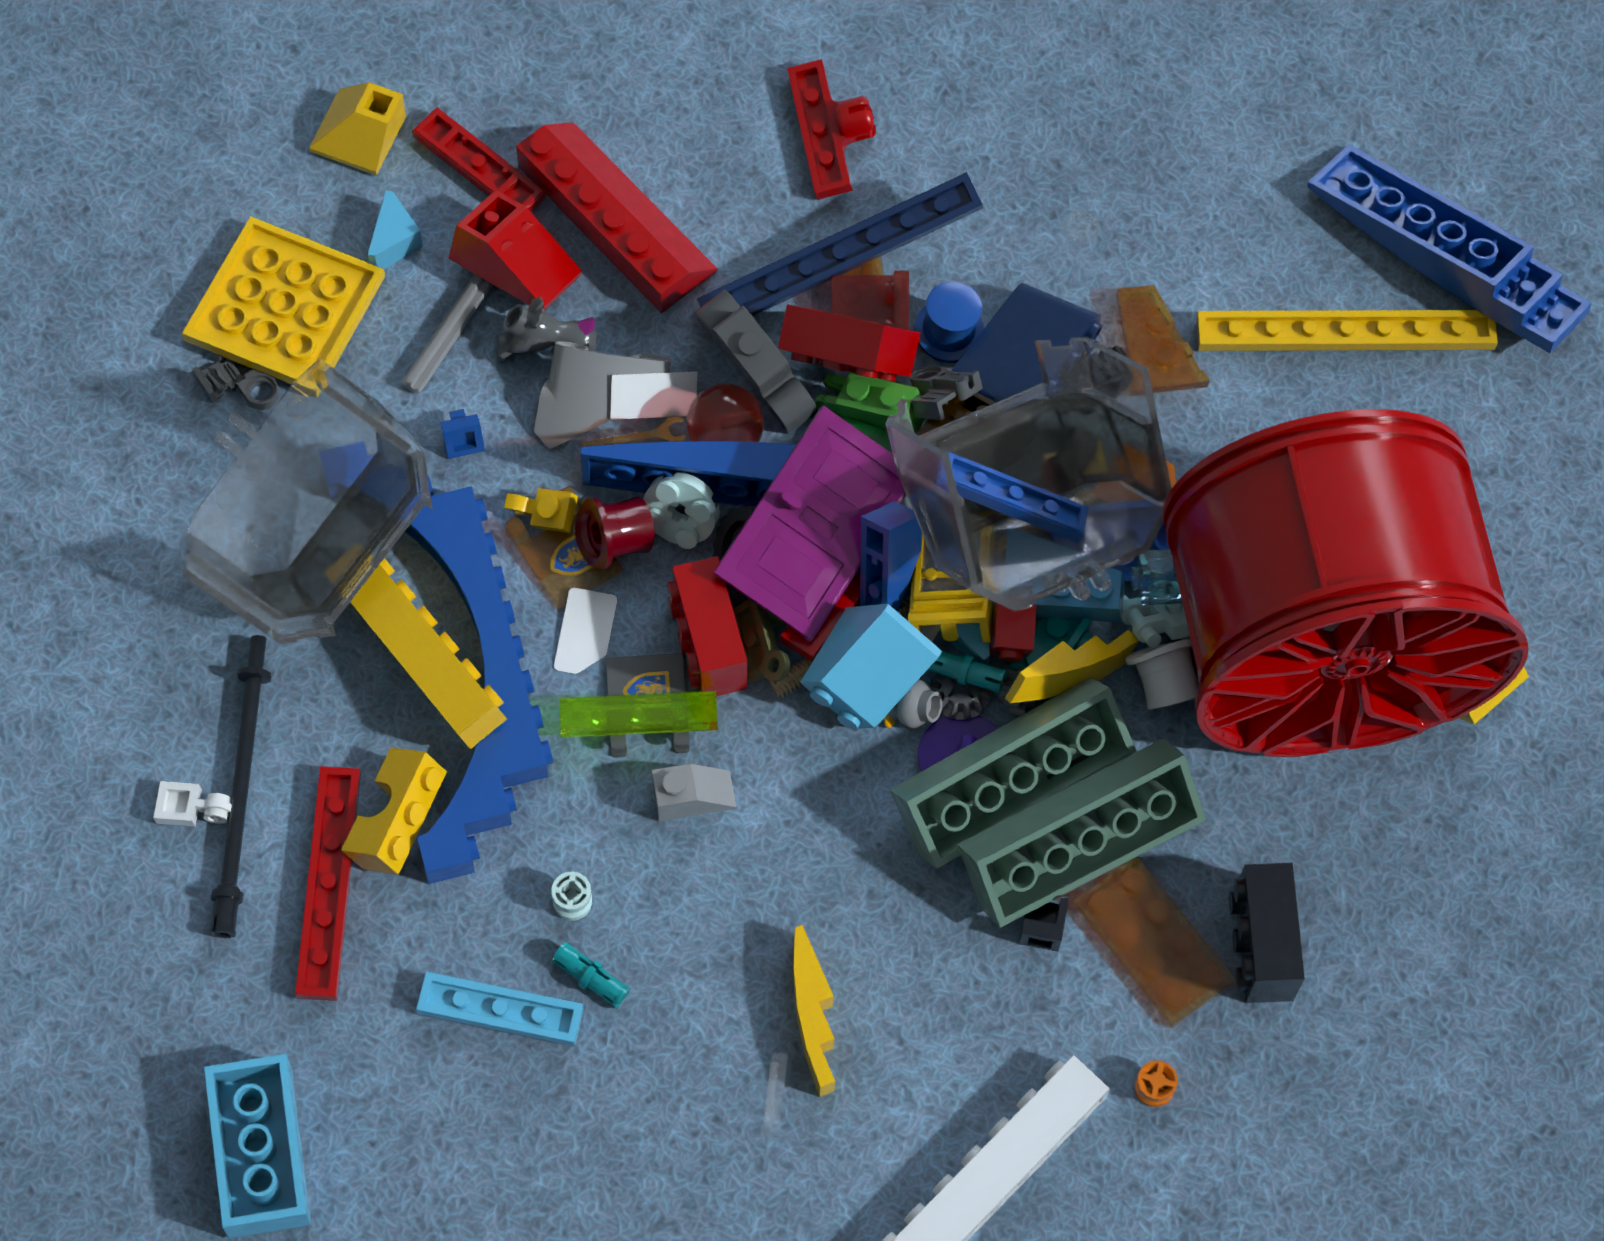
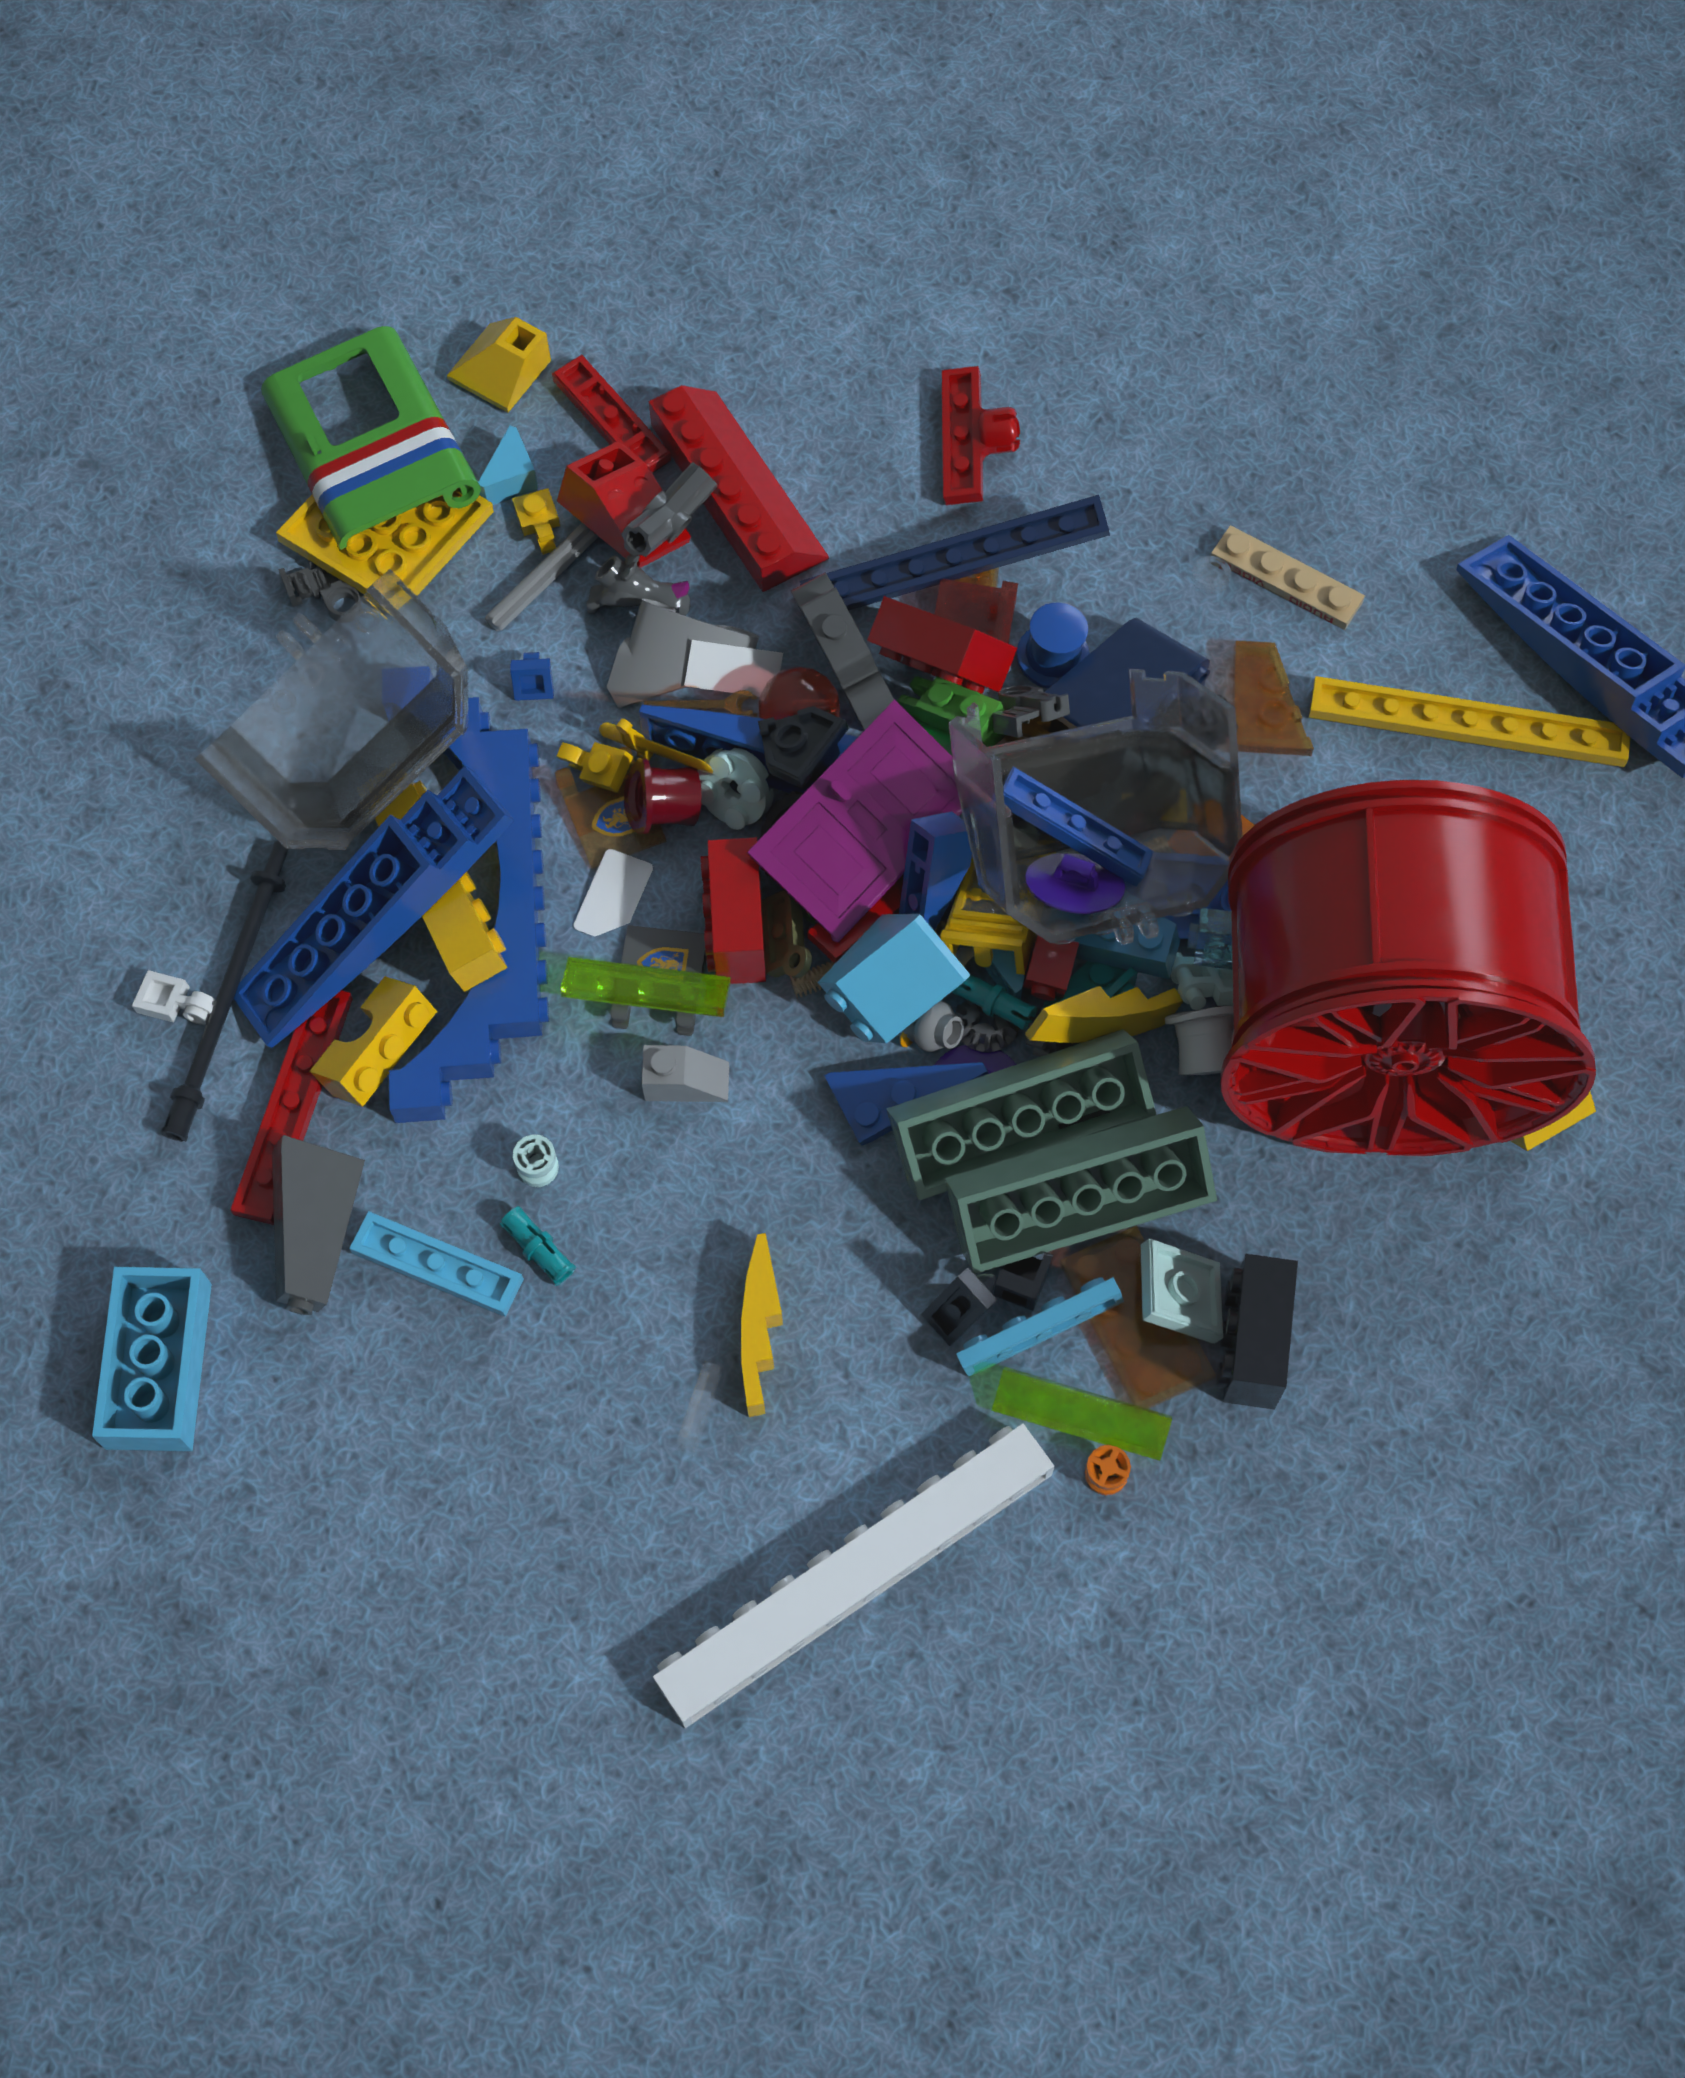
camera: 15 degrees right, 0 degrees up
(272, 255) = (385, 467): none -> bright green piece
(366, 682) = (371, 903): none -> blue slope
(375, 989) = (311, 1215): none -> dark grey slope
(430, 273) = (538, 516): none -> yellow plate
(562, 253) = (668, 512): none -> dark grey piece
(567, 476) = (645, 748): none -> yellow sword
(742, 461) = (801, 744): none -> black plate
(869, 777) = (868, 1093): none -> blue wing
(995, 958) = (961, 1305): none -> black tile
(1022, 550) = (1074, 883): none -> dark purple shield
(1082, 954) = (1025, 1333): none -> medium azure plate
(1122, 1036) = (1082, 1413): none -> clear neon green tile
(1153, 218) = (1288, 577): none -> tan plate
(1191, 908) = (1181, 1291): none -> light aqua plate

